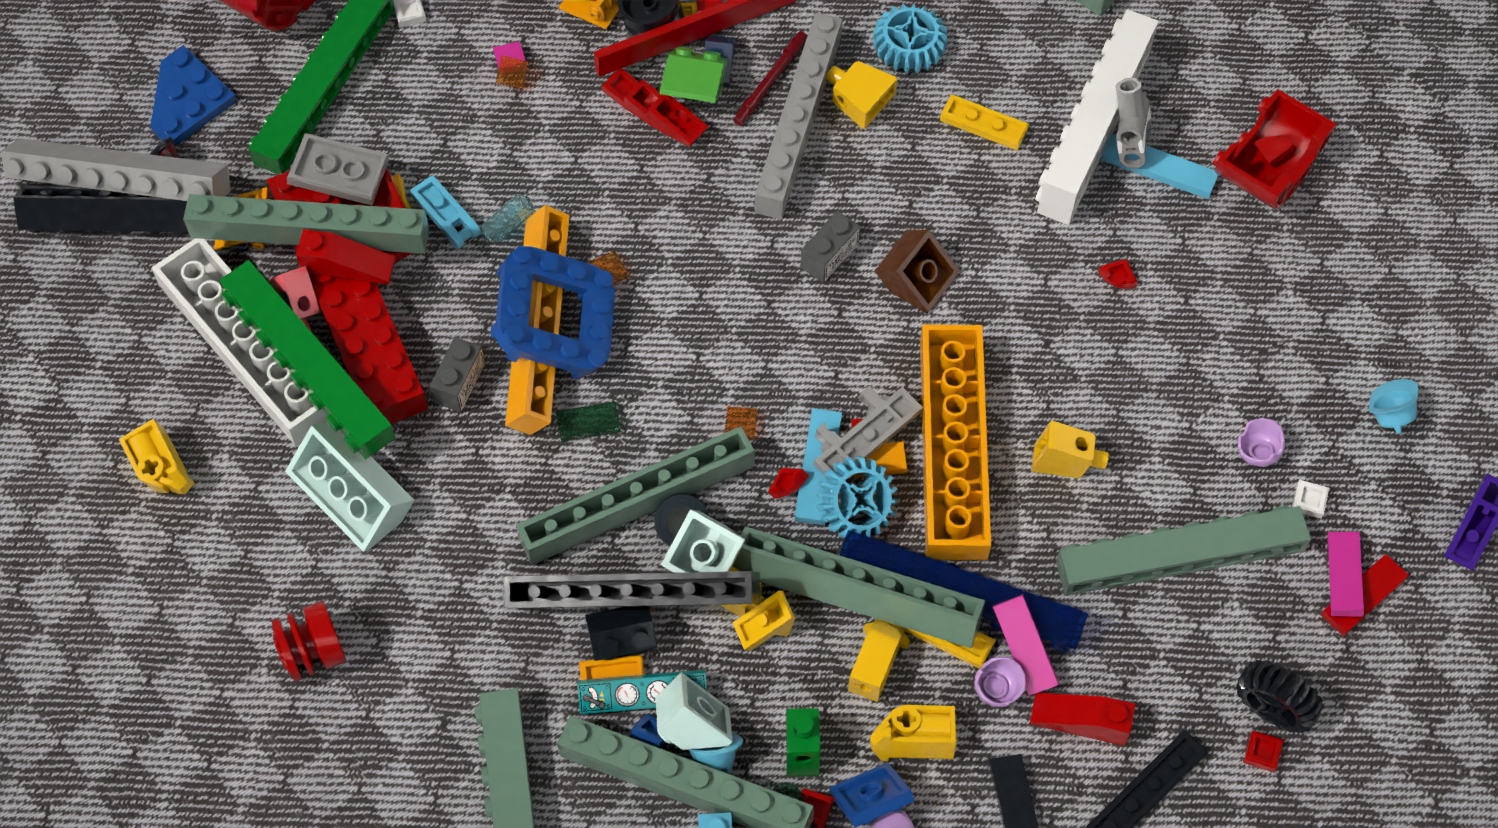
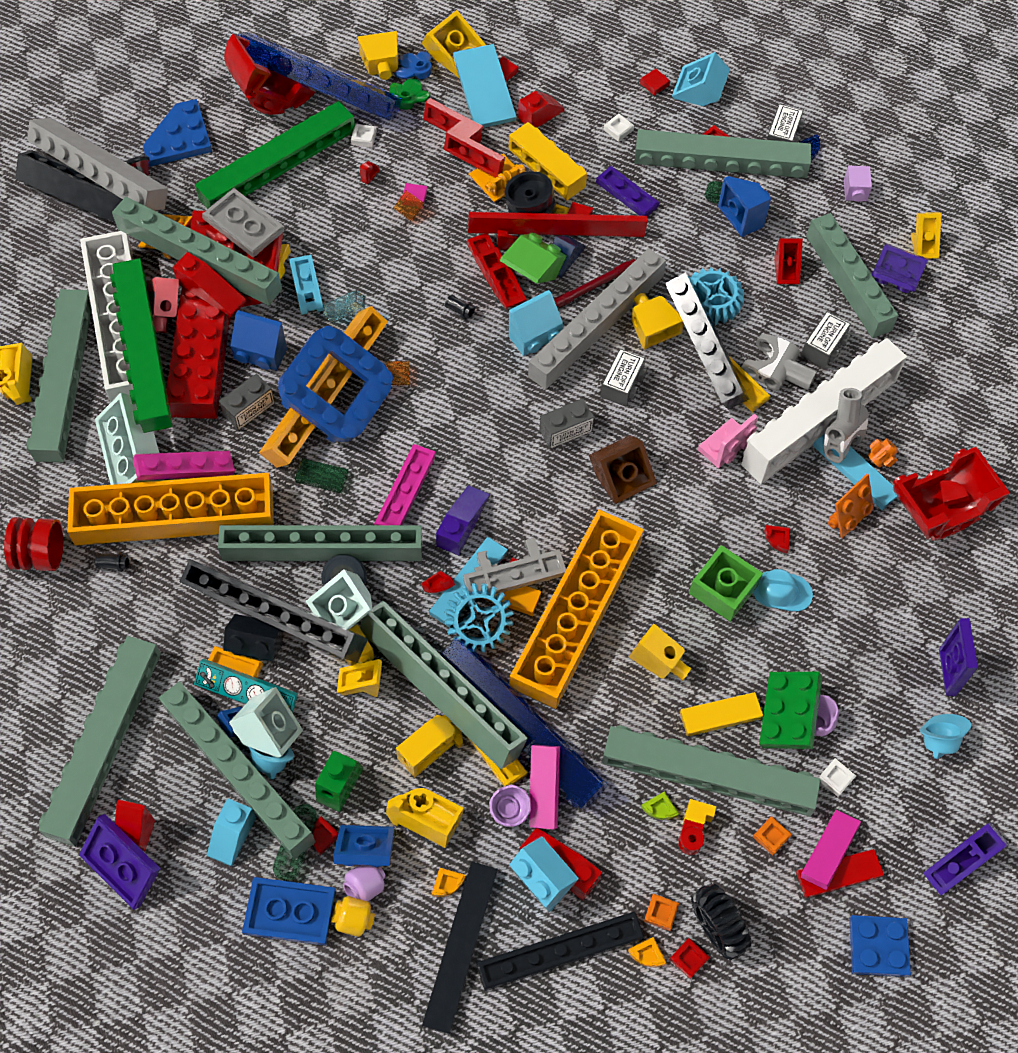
camera: 25 degrees right, 0 degrees up
(217, 438) = (60, 376): none -> sand green brick
(406, 621) = (112, 561): none -> black pin
(429, 477) = (183, 465): none -> dark pink plate
(431, 299) = (258, 341): none -> blue slope
(441, 52) = (368, 171): none -> red tile
(441, 532) = (168, 508): none -> light orange brick
(636, 165) = (459, 306): none -> black pin
(647, 68) = (505, 240): none -> red tile
(692, 393) = (406, 486): none -> dark pink plate
(736, 150) = (534, 323): none -> medium azure slope
(742, 417) = (429, 523): clear orange tile -> none
(774, 402) = (461, 520): none -> dark purple slope
(863, 170) = (623, 377): none -> brick
(935, 91) = (707, 341): none -> brick
(975, 793) = (447, 883): none -> light orange tile
(1012, 192) = (727, 441): none -> bright pink bracket
(1022, 86) = (780, 365): none -> light grey connector
(1056, 38) = (826, 339): none -> brick
(1077, 734) = (543, 872): none -> medium azure slope
(1094, 346) = (725, 583): none -> bright green brick
(1151, 612) = (660, 807): none -> lime tile
(1152, 329) = (783, 591): none -> medium azure piece
(1160, 487) = (721, 714): none -> yellow tile
(1180, 136) = (883, 453): none -> orange gear
(1181, 209) = (852, 507): none -> orange hinge
(1196, 615) = (691, 833): none -> leg
(1210, 718) = (661, 912): none -> orange tile
(1220, 767) = (647, 954): none -> light orange tile
(1231, 449) = (791, 710): none -> green plate
(1278, 588) = (772, 835): none -> orange tile
(1372, 318) = (958, 657): none -> dark purple tile
(1440, 648) = (879, 946): none -> blue plate

